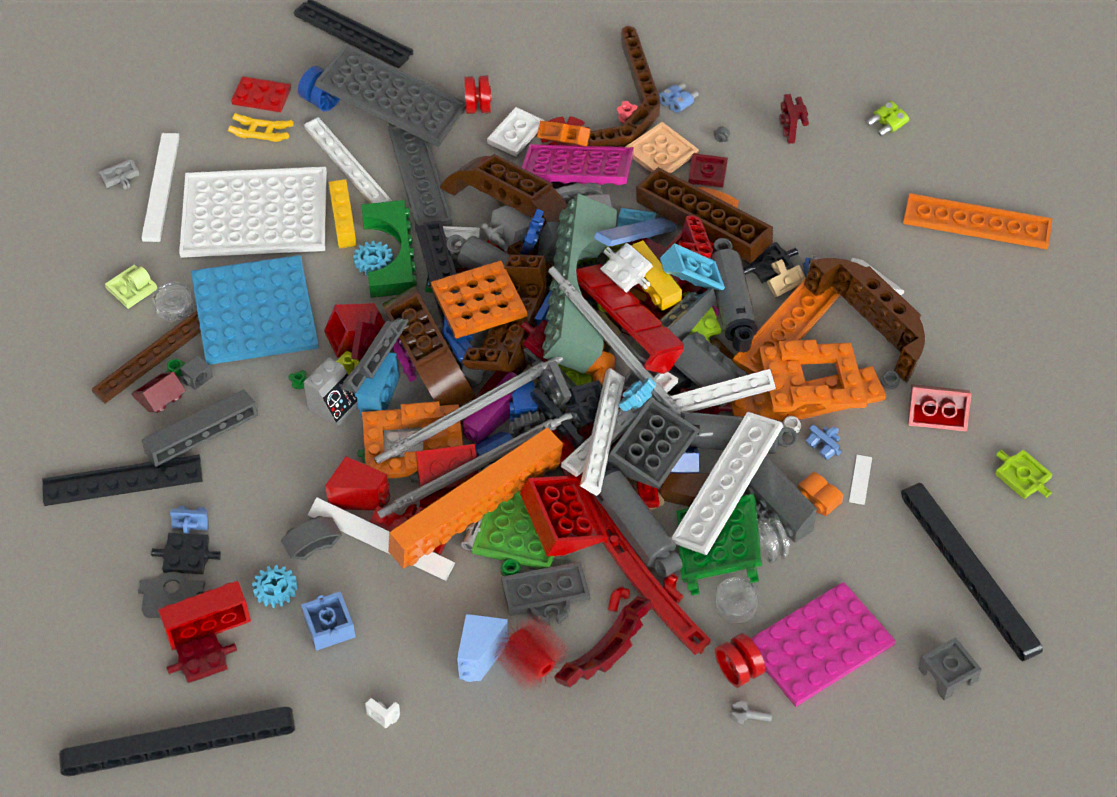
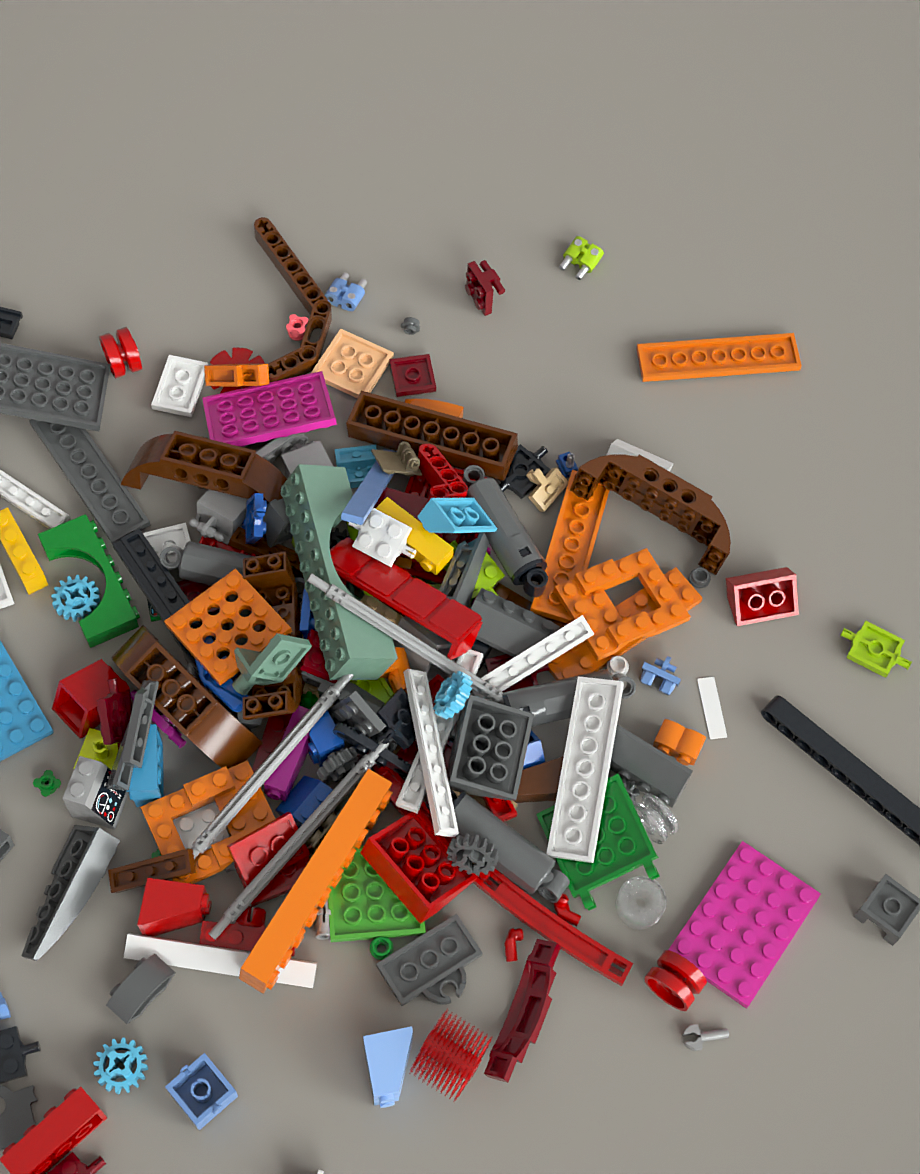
camera: 25 degrees left, 10 degrees up
(293, 448) = (74, 881): none -> dark grey wedge
(369, 455) = (161, 867): none -> reddish brown plate
(500, 327) = (271, 664): none -> sand green plate
(607, 514) = (472, 854): none -> dark grey gear
(672, 226) = (402, 461): none -> dark tan hinge

